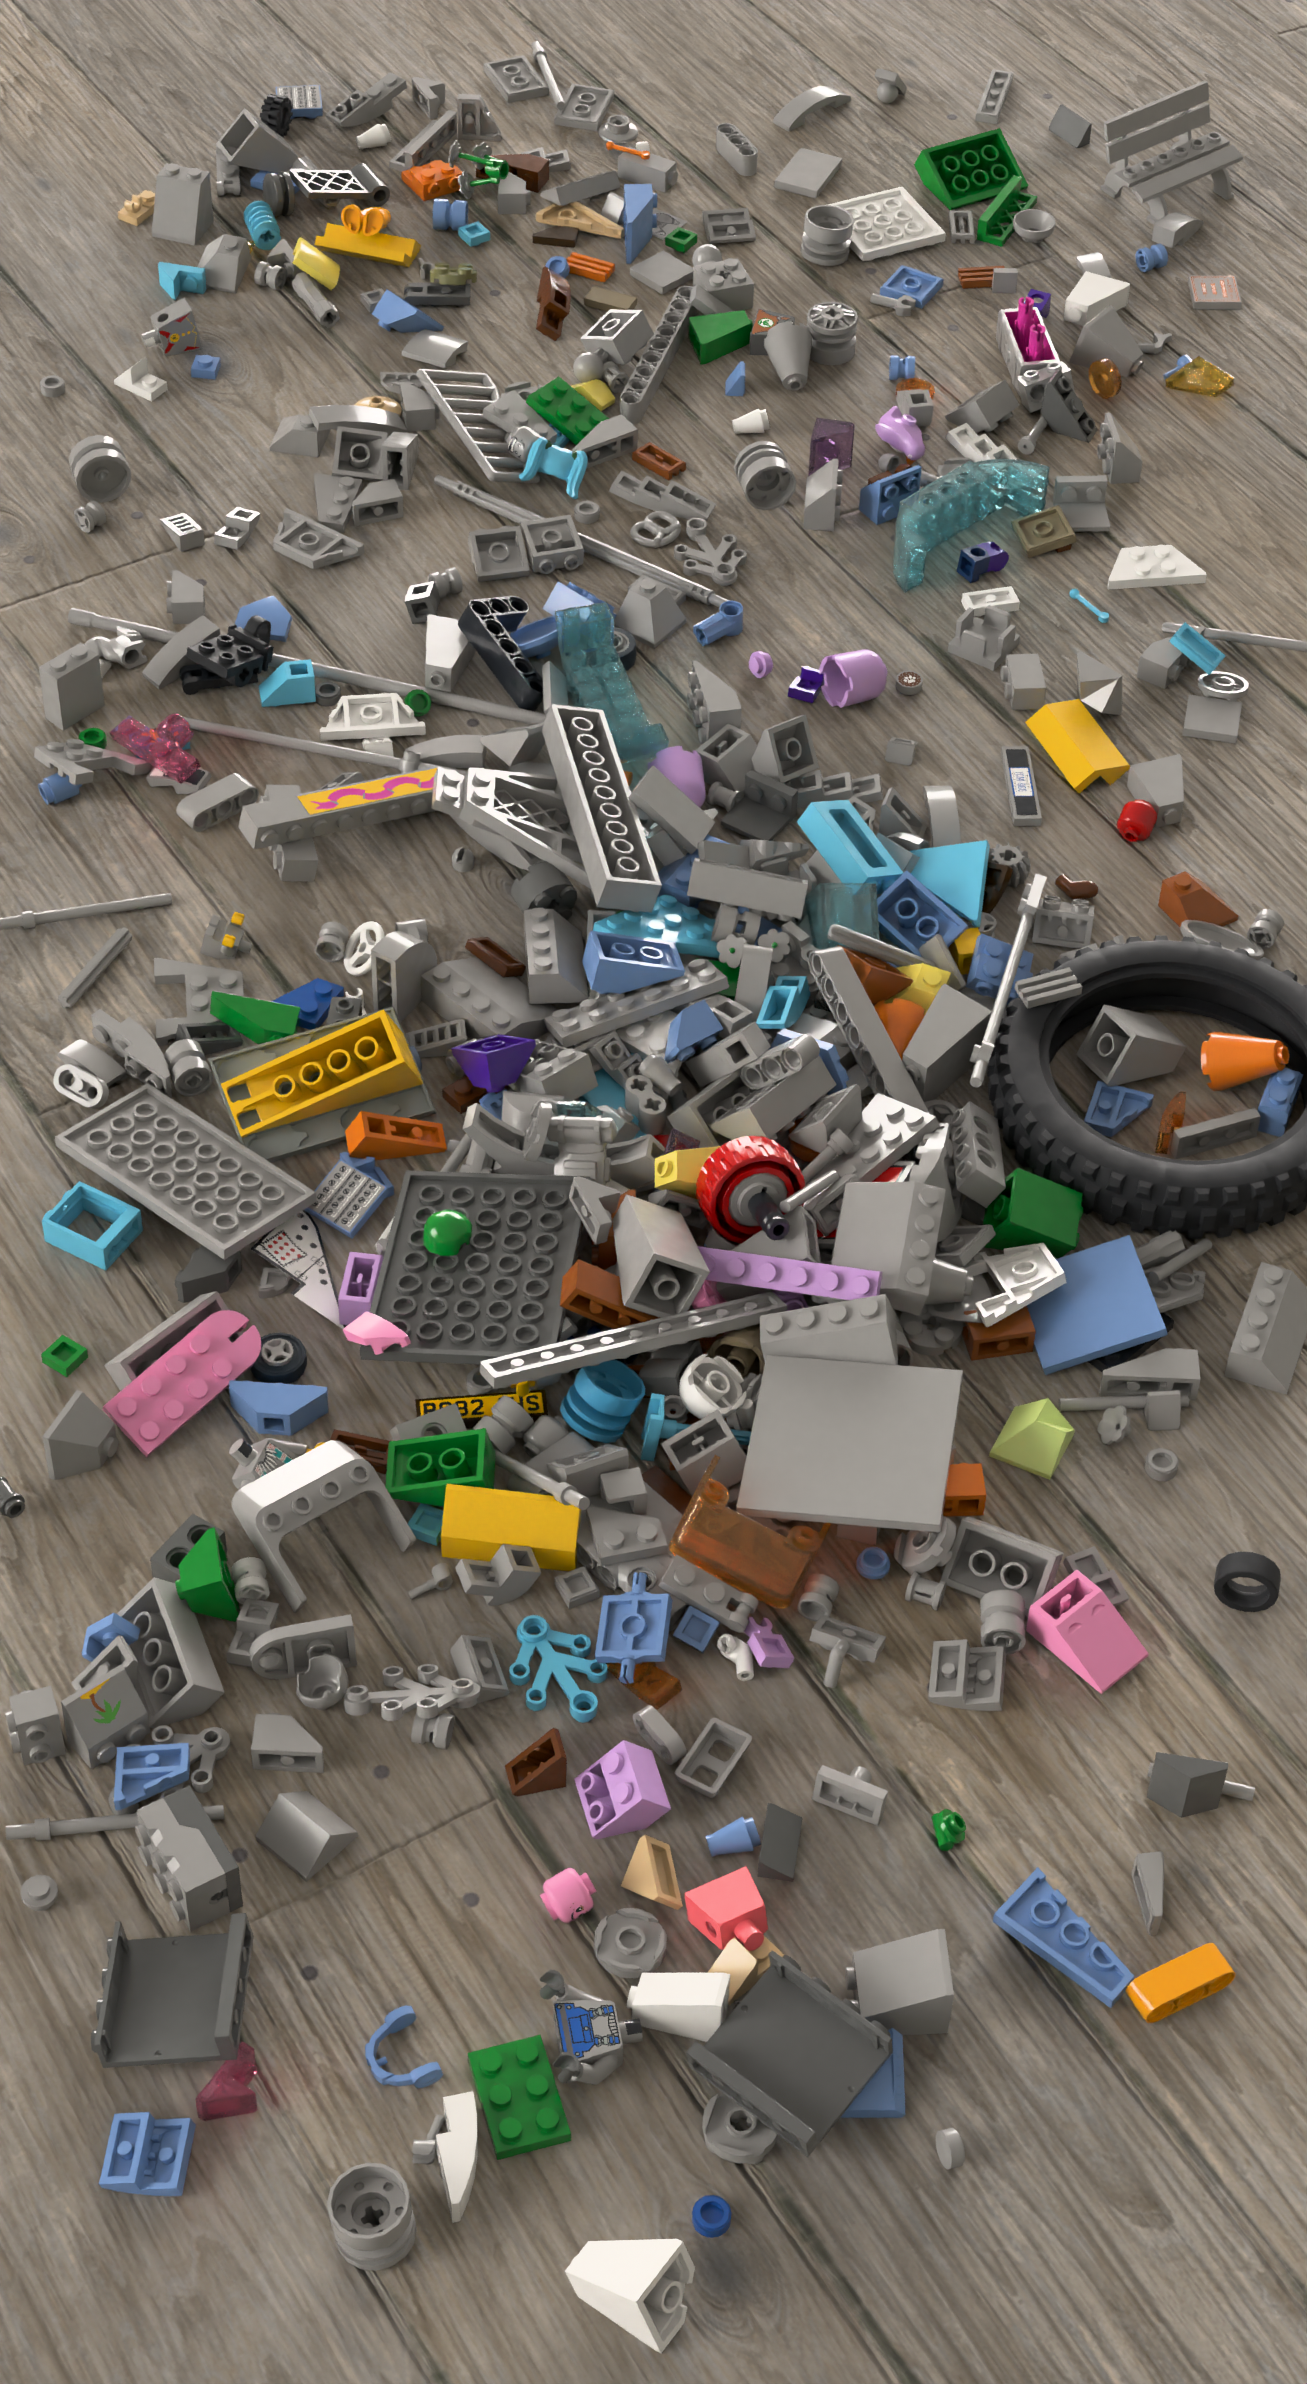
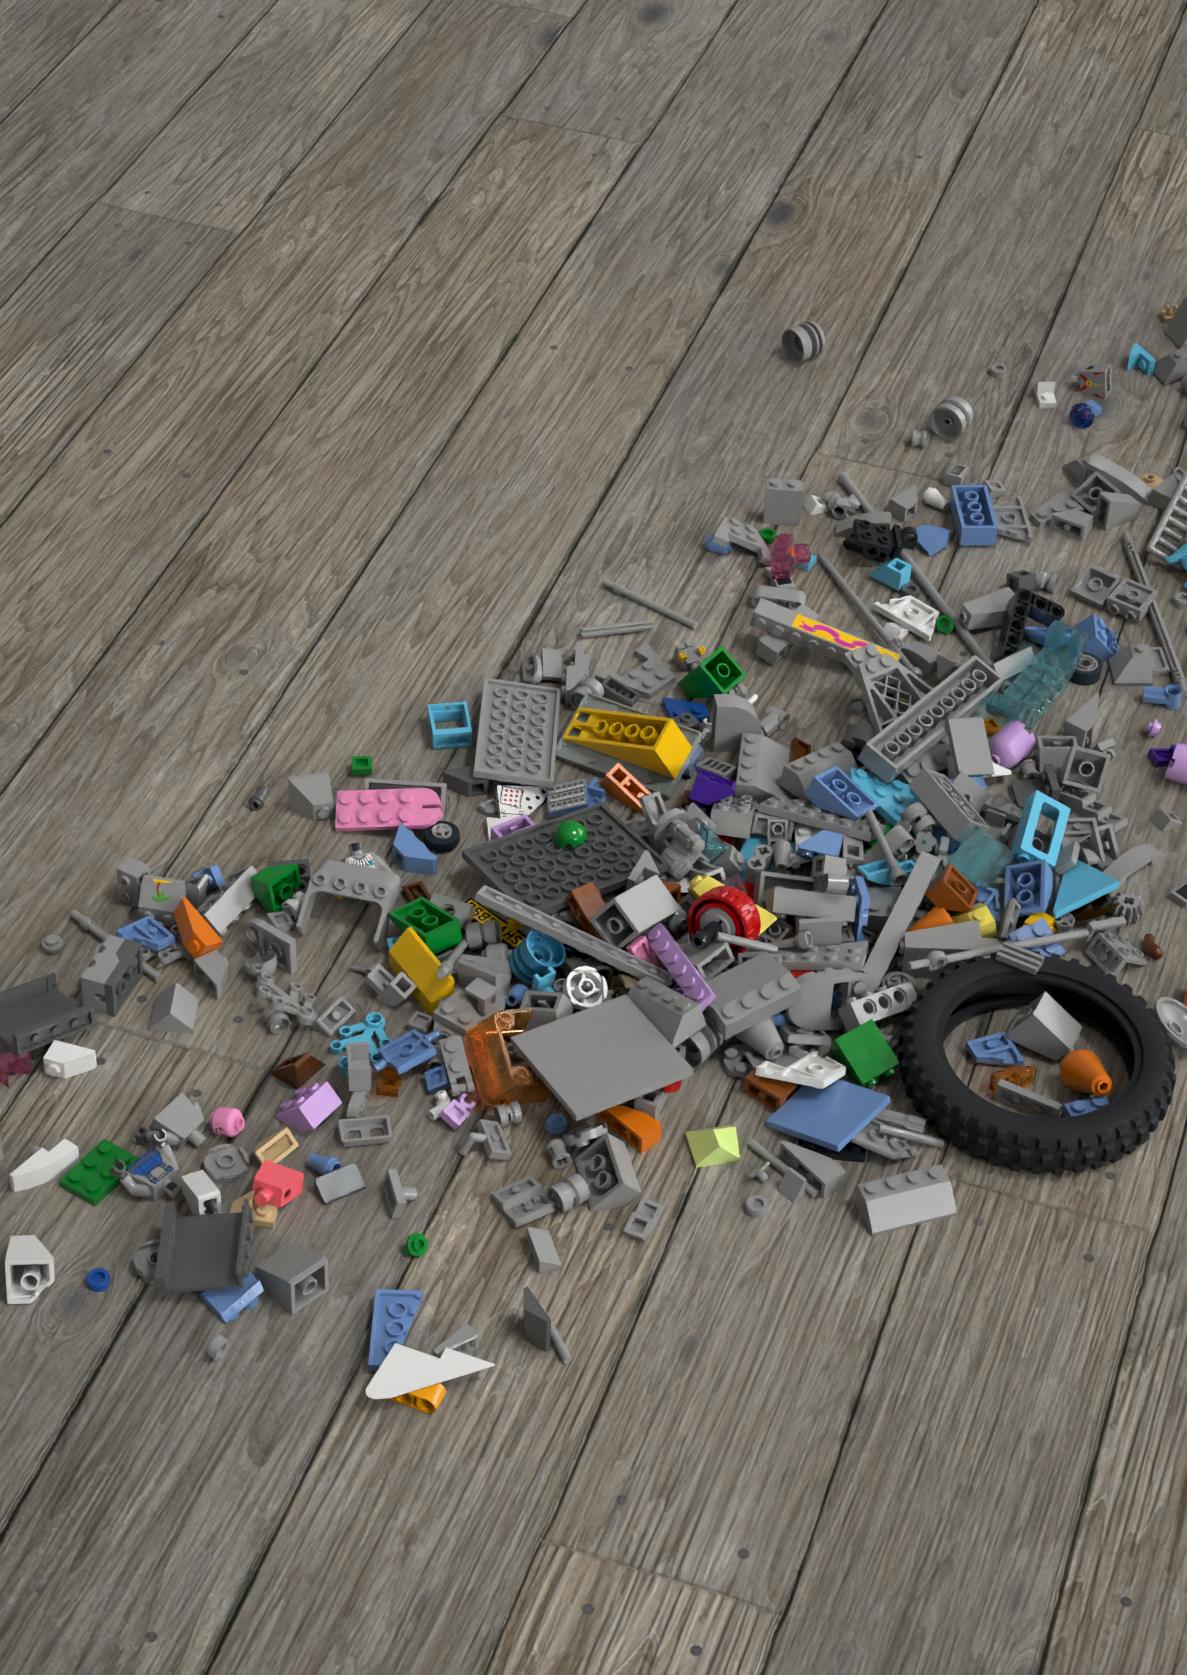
camera: 50 degrees right, 5 degrees down
(205, 1714) = (194, 930): none -> orange slope
(206, 572) = (935, 499): none -> white cone
(214, 379) = (1082, 415): none -> clear blue head
(255, 1018) = (647, 698): green slope -> none
(275, 561) = (973, 515): none -> medium blue brick
(283, 2007) = (68, 1060): none -> white slope
(295, 938) = (712, 676): none -> green slope
(375, 1331) = (473, 847): bright pink slope -> none
(421, 2076) = (77, 1130): medium blue piece -> none
(523, 1951) = (180, 1121): none -> light grey torso
(620, 1697) = (358, 1066): none -> light grey panel
(638, 1458) = (516, 995): none -> medium blue cone
(752, 719) = (1105, 747): none -> light grey tile
(811, 999) = (897, 875): none -> light grey piece
(874, 947) = (976, 884): light grey axle -> none
(1061, 1707) = (543, 1249): none -> light grey slope
(1085, 1632) = (597, 1230): bright pink slope -> none
(1172, 1957) = (411, 1370): none -> white sticker
(1247, 1566) = (702, 1277): black tyre -> none

